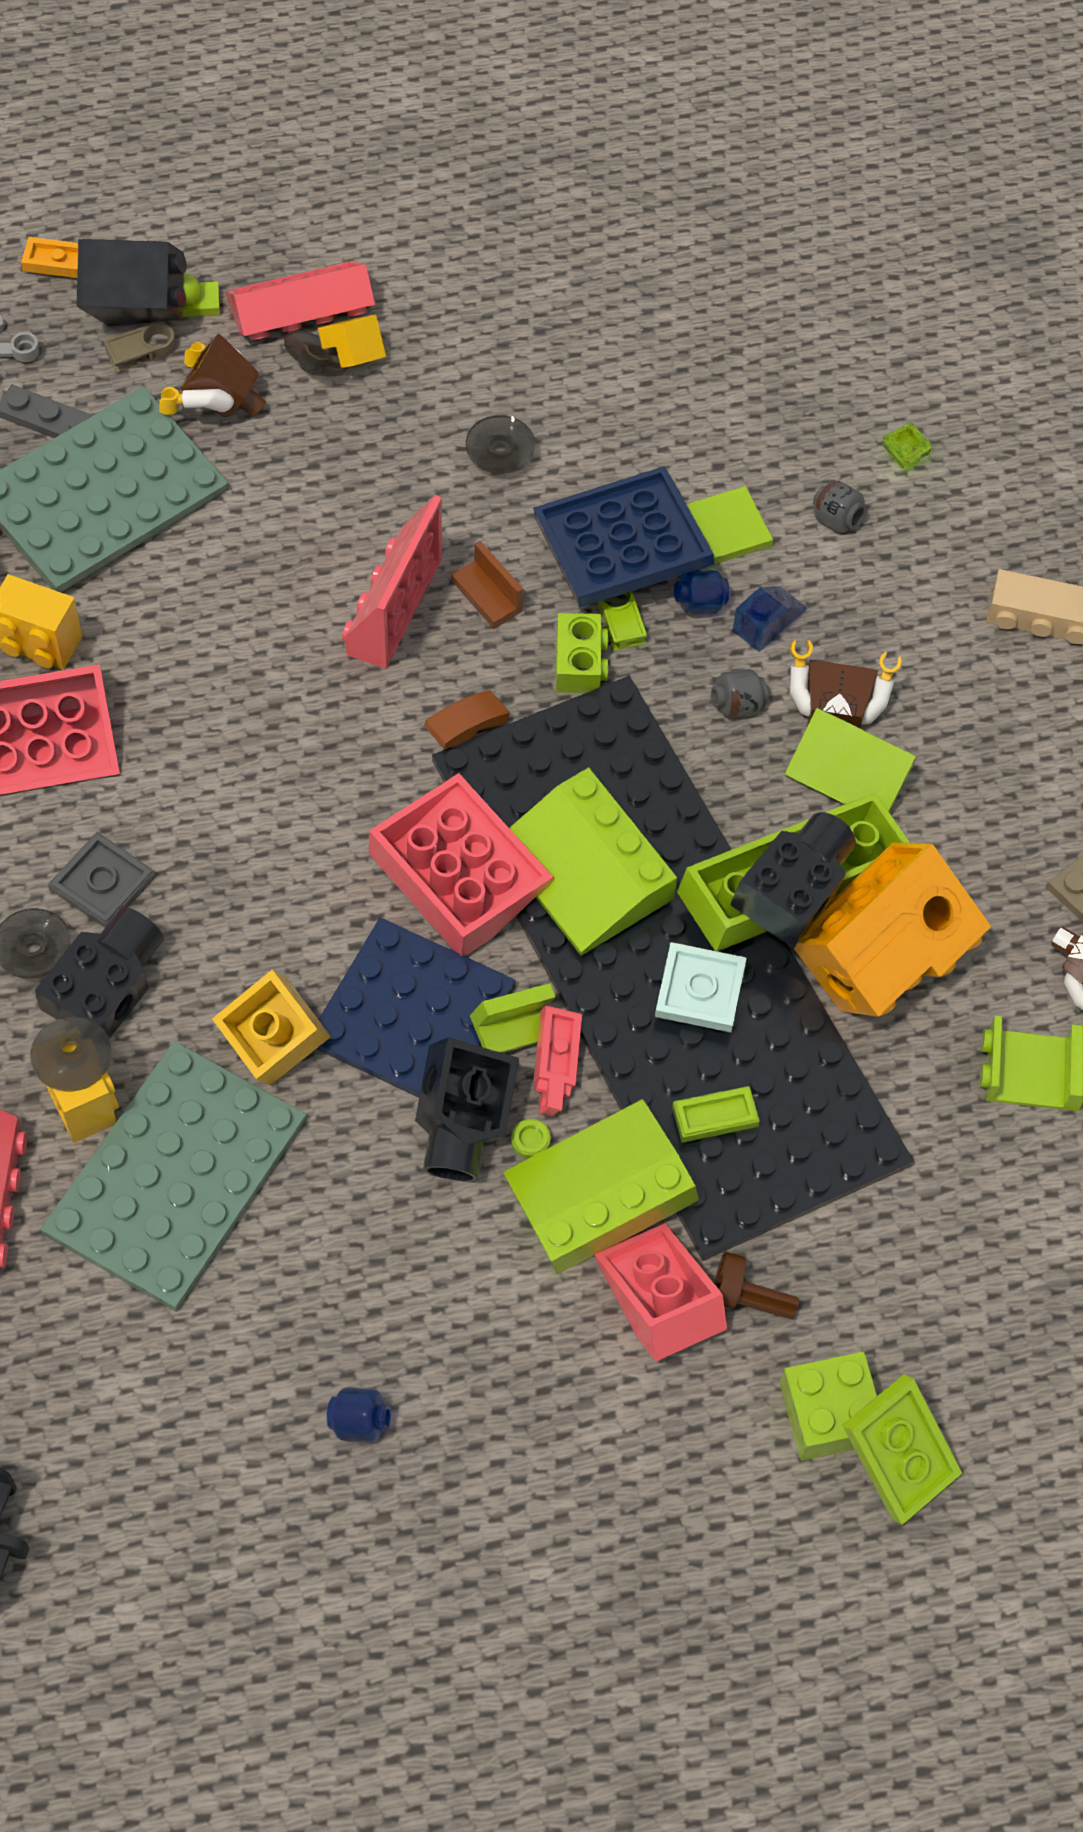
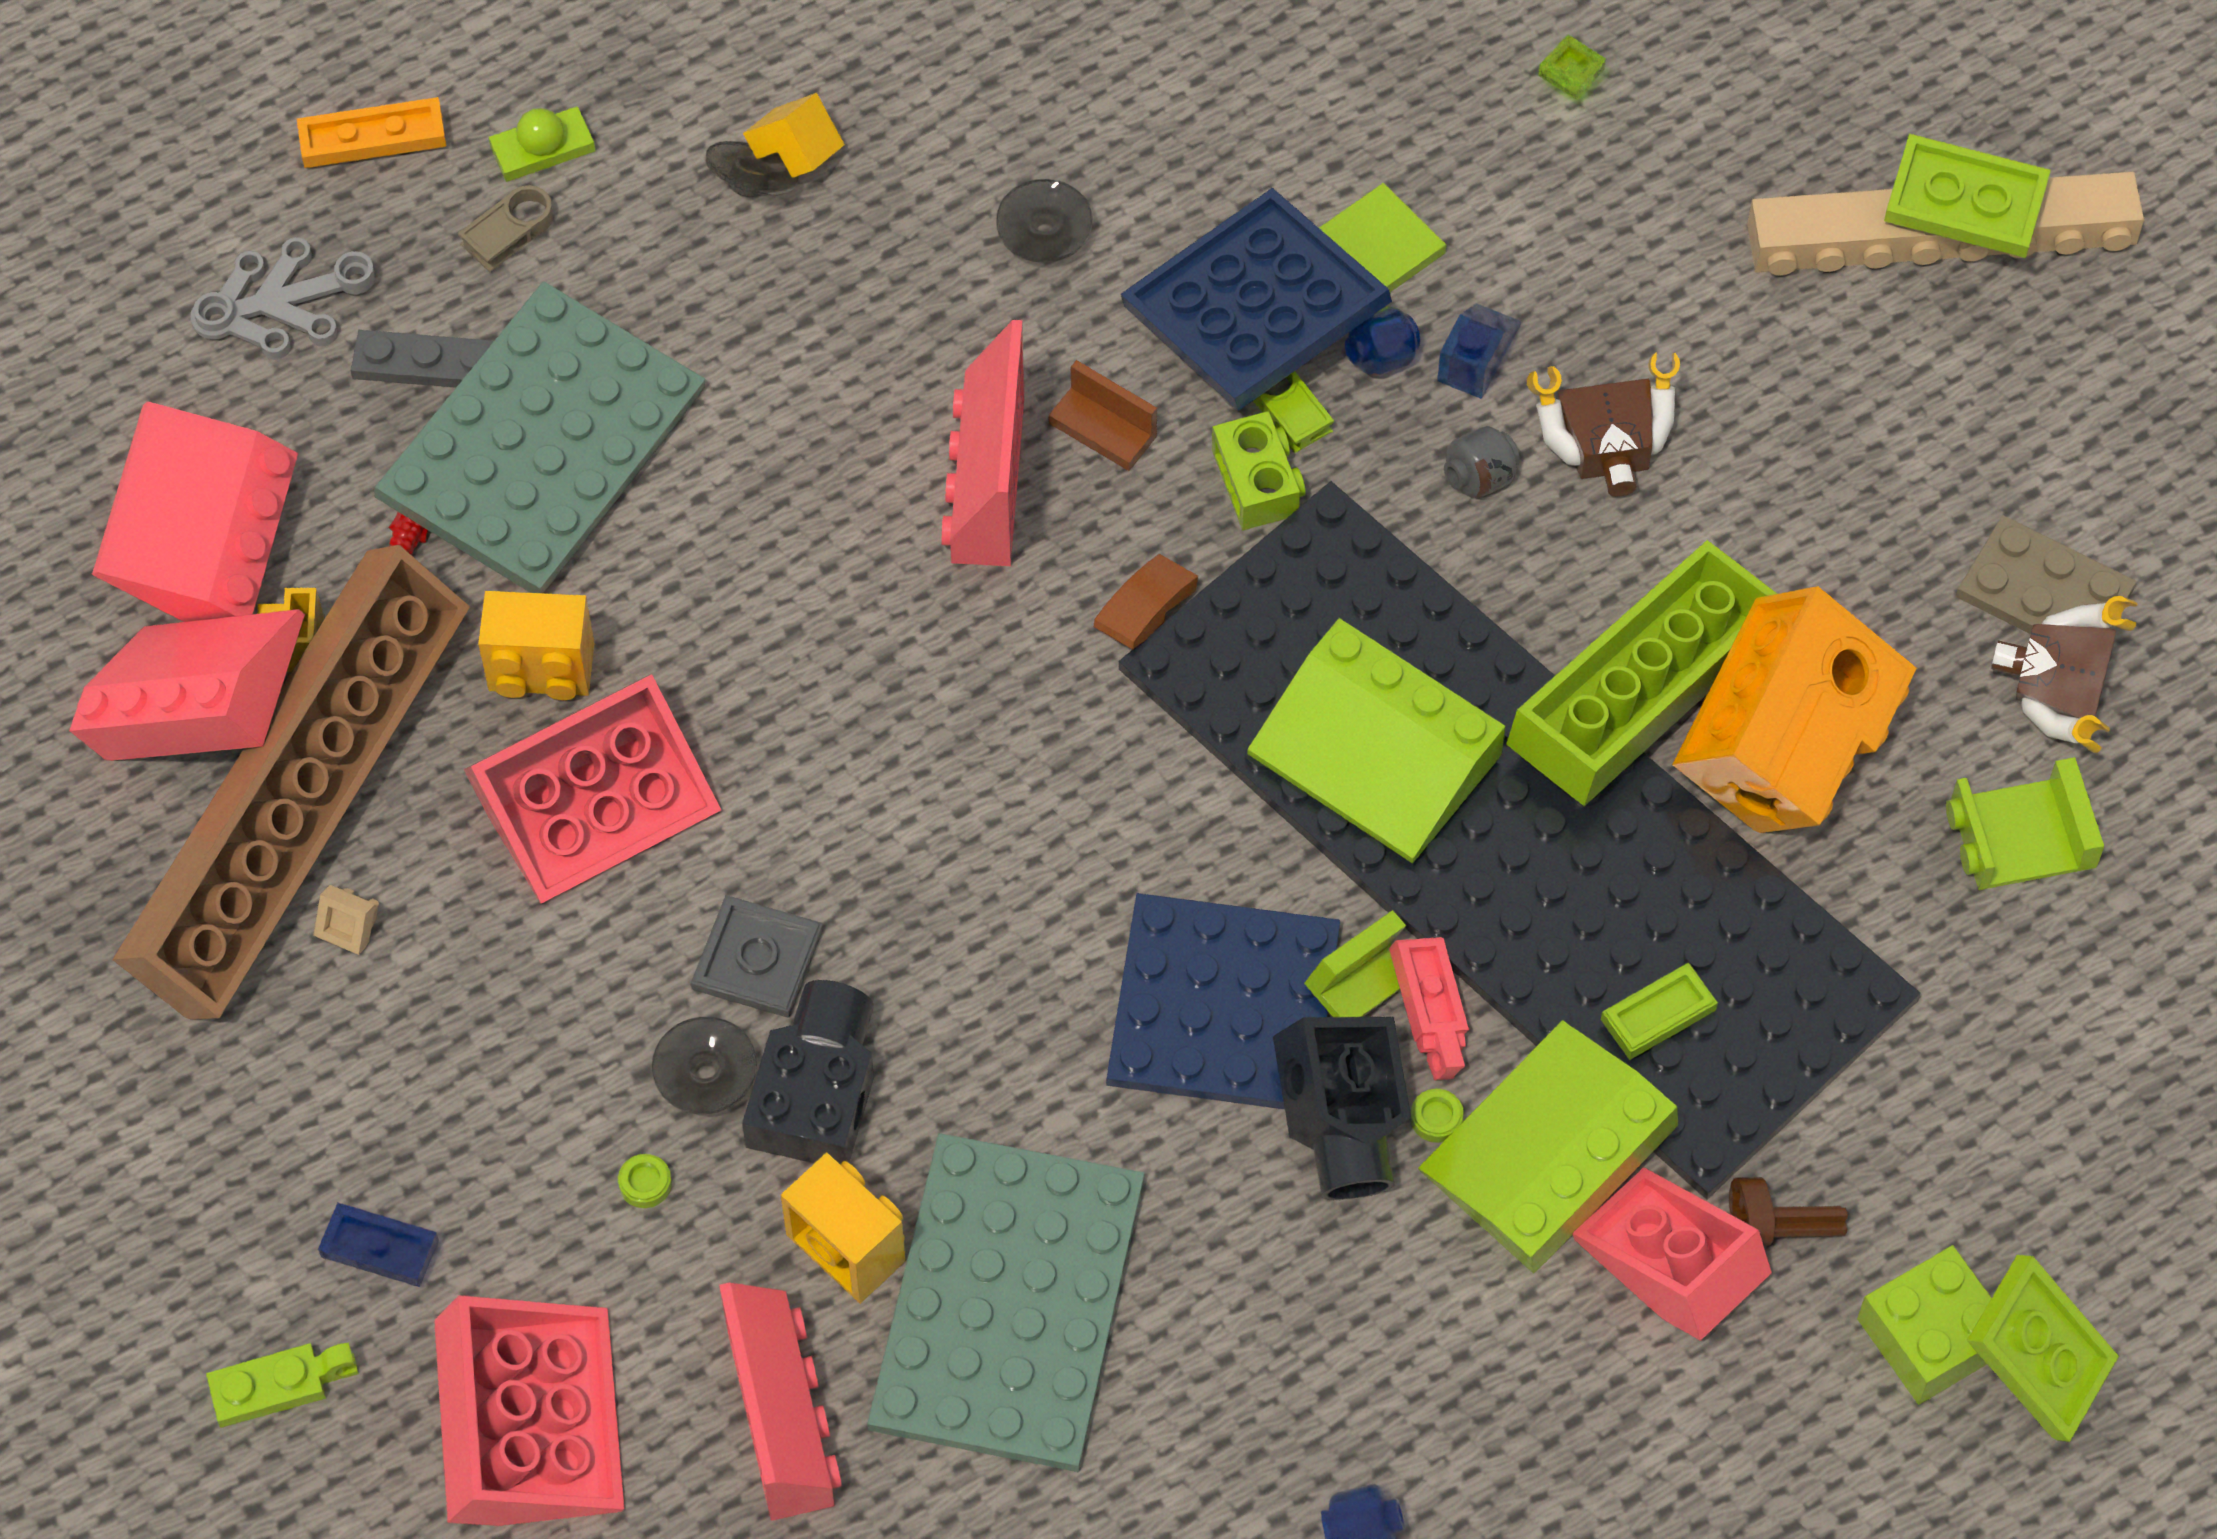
camera: 15 degrees left, 0 degrees up
(72, 1069) = (839, 1209): clear smoke dish -> none
(130, 281) = (475, 142): black slope -> none
(217, 381) = (638, 245): reddish brown torso -> none
(271, 1027) = (1062, 1076): yellow brick -> none
(301, 298) = (699, 97): coral slope -> none
(458, 864) = (1213, 794): coral slope -> none
(700, 987) = (1581, 856): light aqua plate -> none
(796, 877) = (1661, 680): black brick -> none
(839, 506) = (1515, 175): dark grey head -> none
(849, 761) = (1655, 510): lime tile -> none

